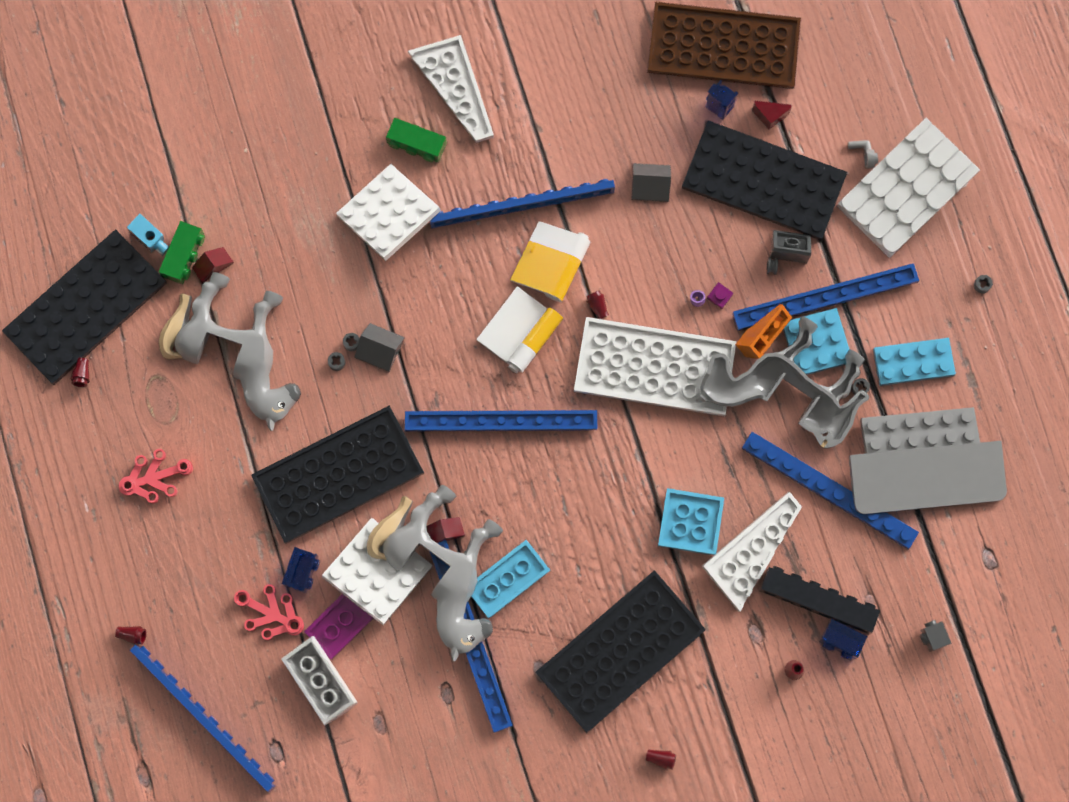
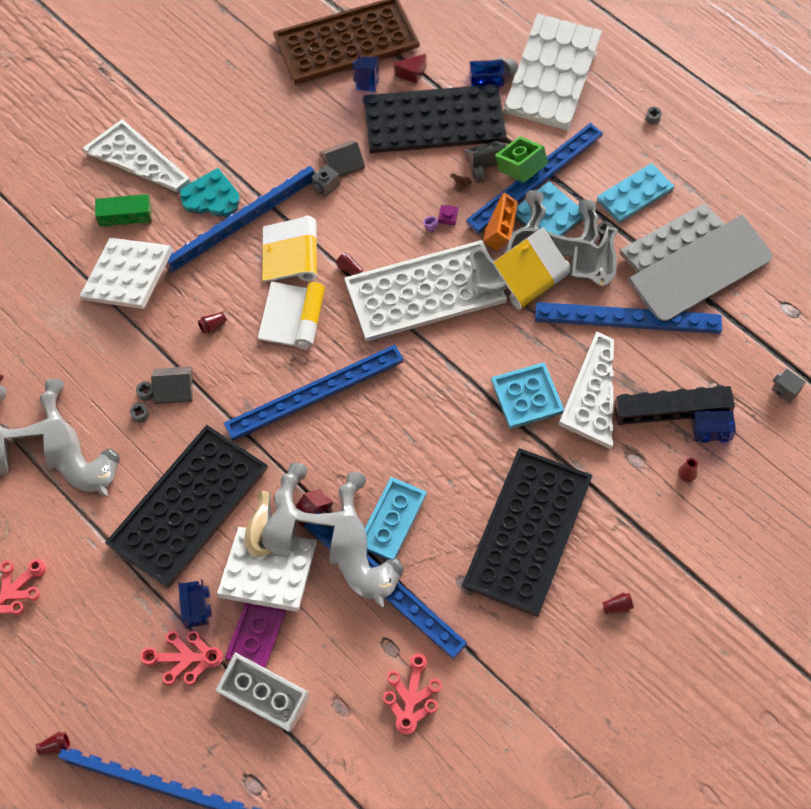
camera: 25 degrees left, 15 degrees down
(441, 747) = (411, 696): none -> coral plant
(442, 301) = (211, 322): none -> dark red cone
(507, 161) = (211, 194): none -> teal plate
(620, 201) = (325, 181): none -> dark grey brick
(750, 264) = (460, 181): none -> reddish brown plant
(764, 398) = (532, 268): none -> yellow door
(819, 275) = (521, 159): none -> bright green brick
(842, 155) = (487, 72): none -> clear blue hinge

